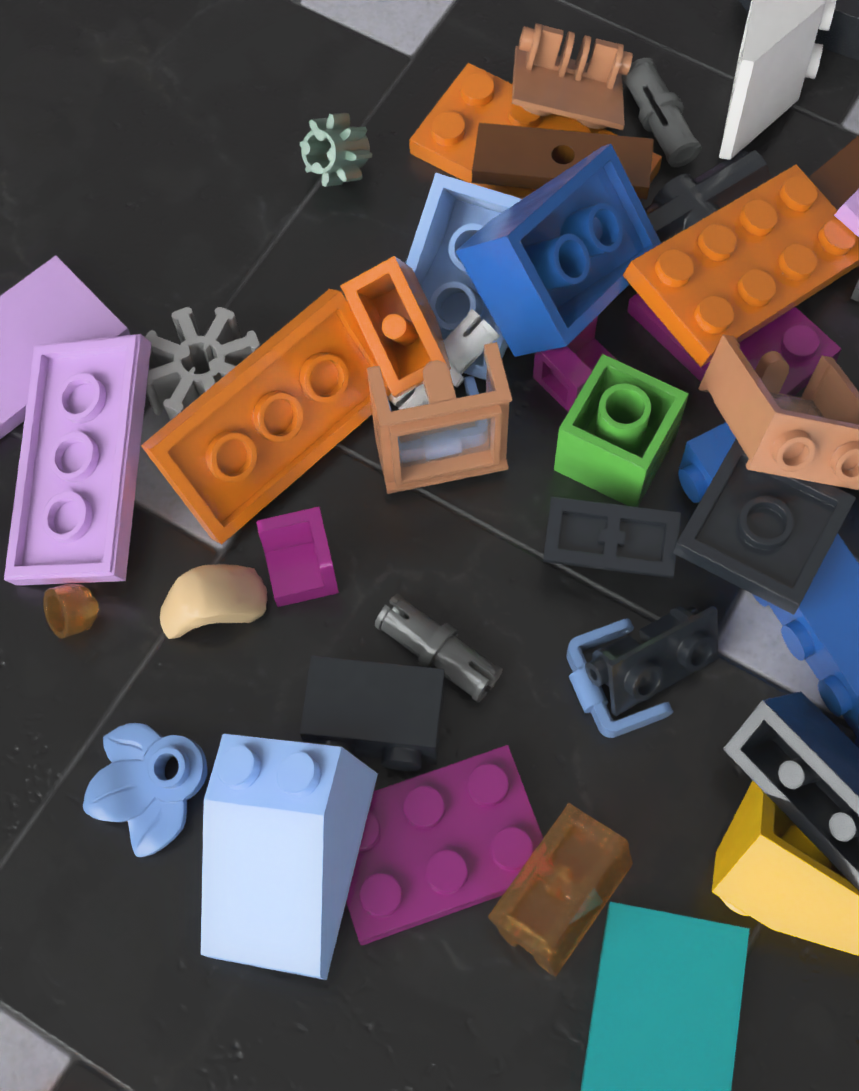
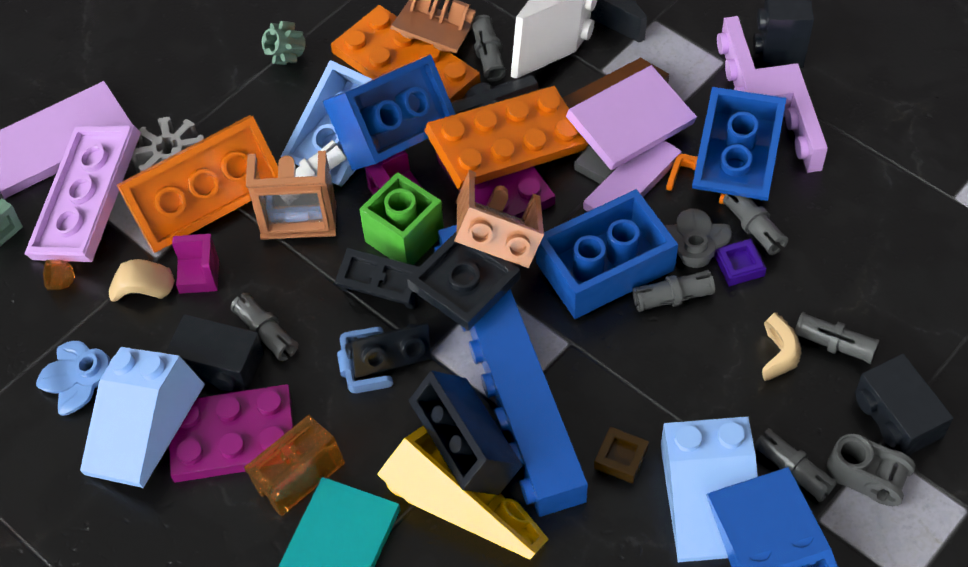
camera: 10 degrees right, 10 degrees down
(396, 323) = (283, 133): orange slope -> none
(537, 155) = (383, 56): reddish brown tile -> none

